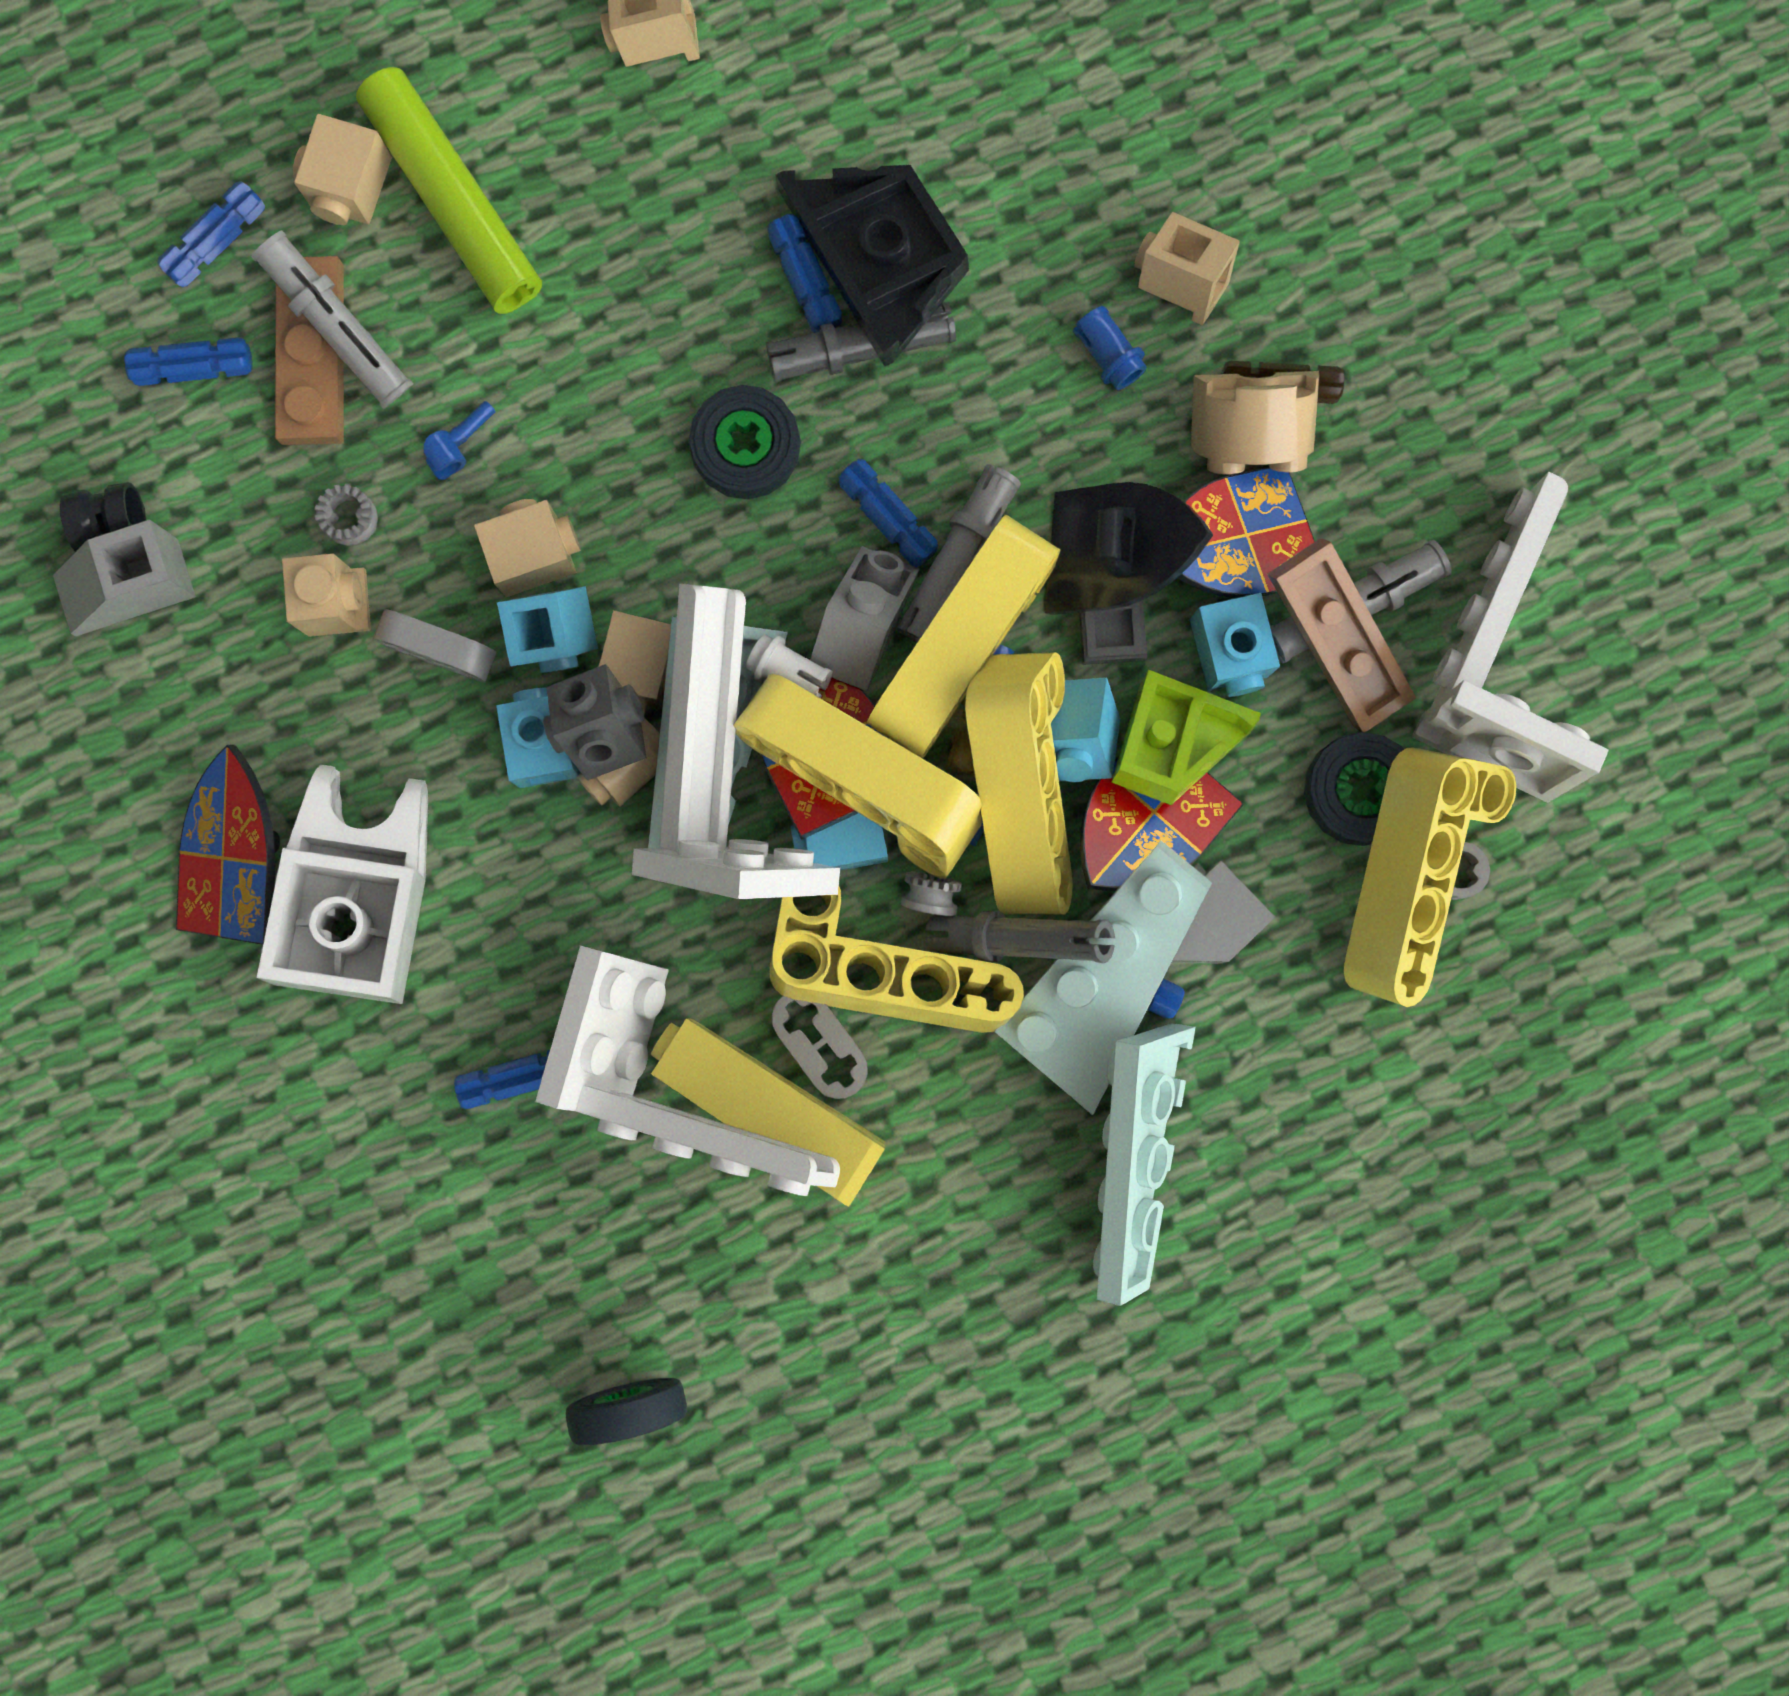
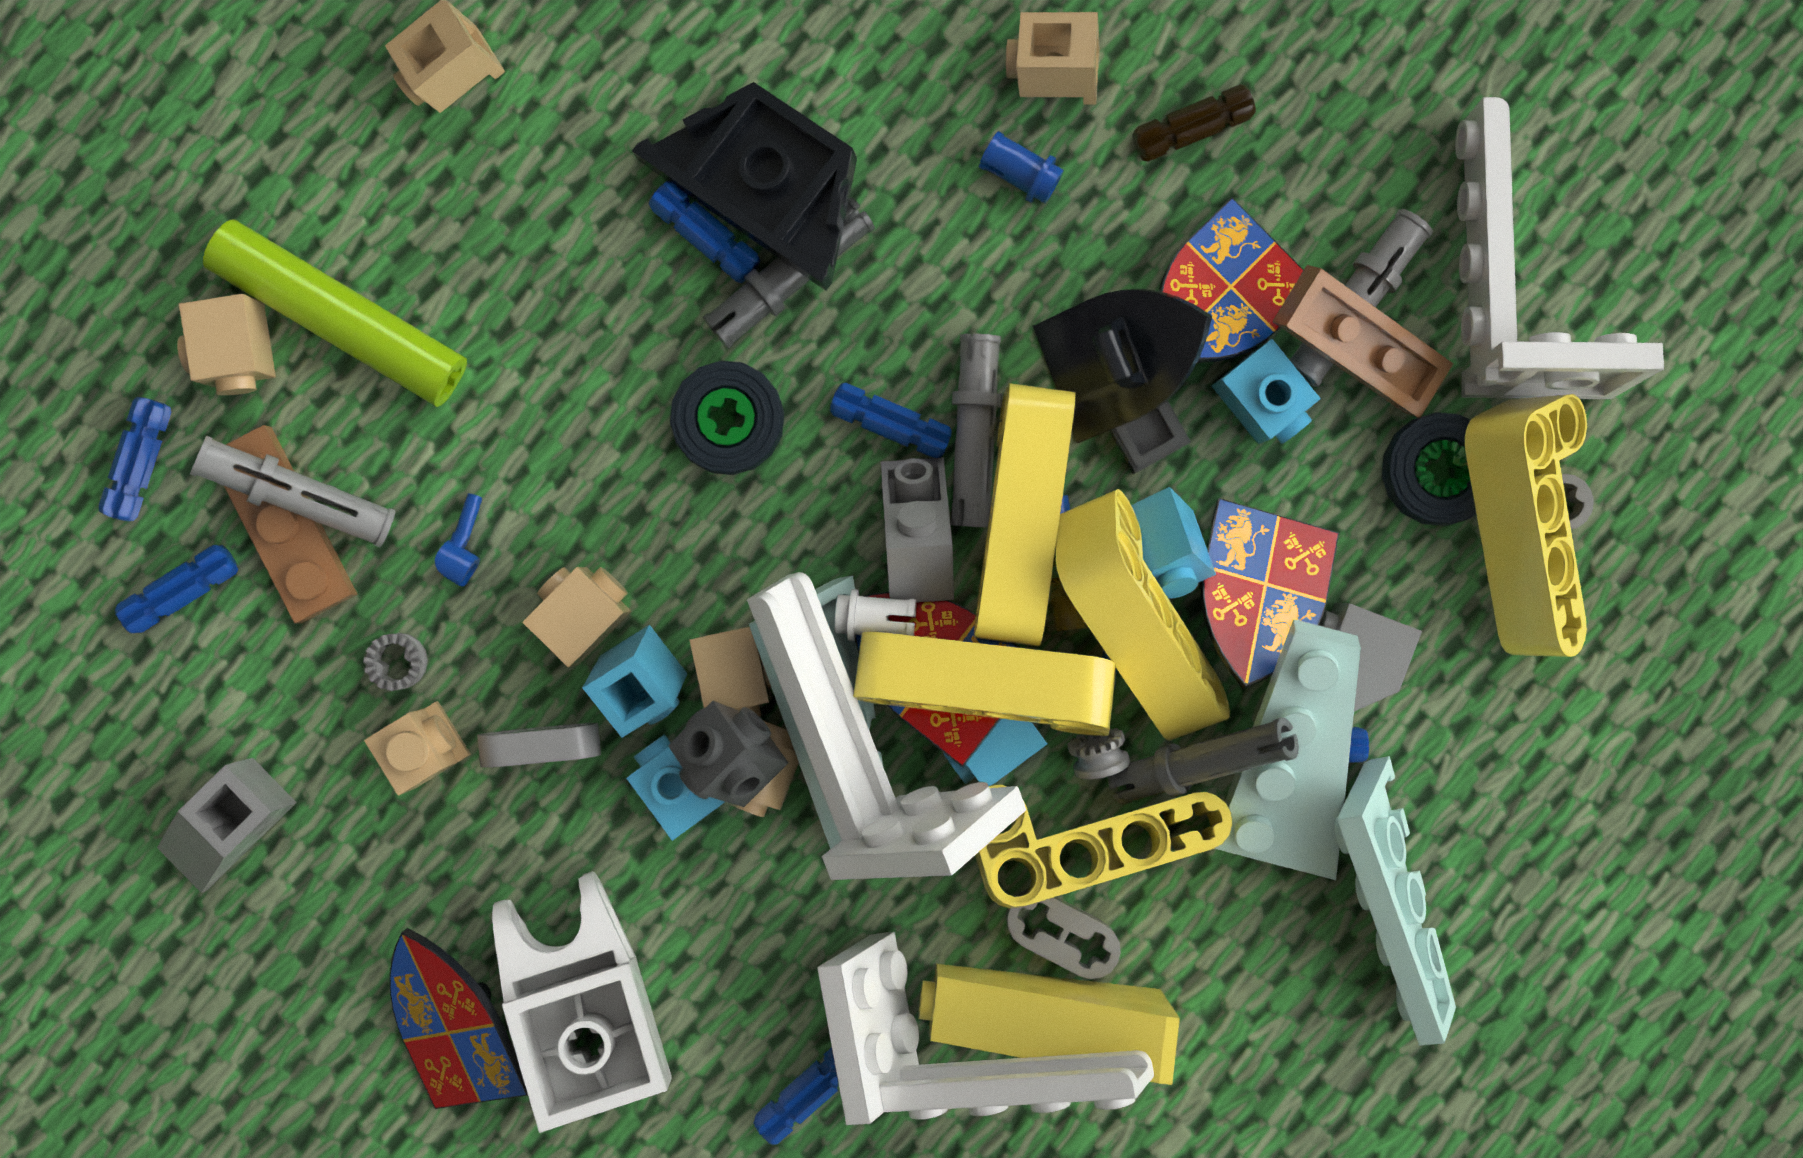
camera: 20 degrees left, 5 degrees up
(93, 515) = (175, 775): black wheel -> none
(1177, 737) = (1253, 505): lime wing -> none
(1254, 420) = (1188, 176): tan cylinder -> none

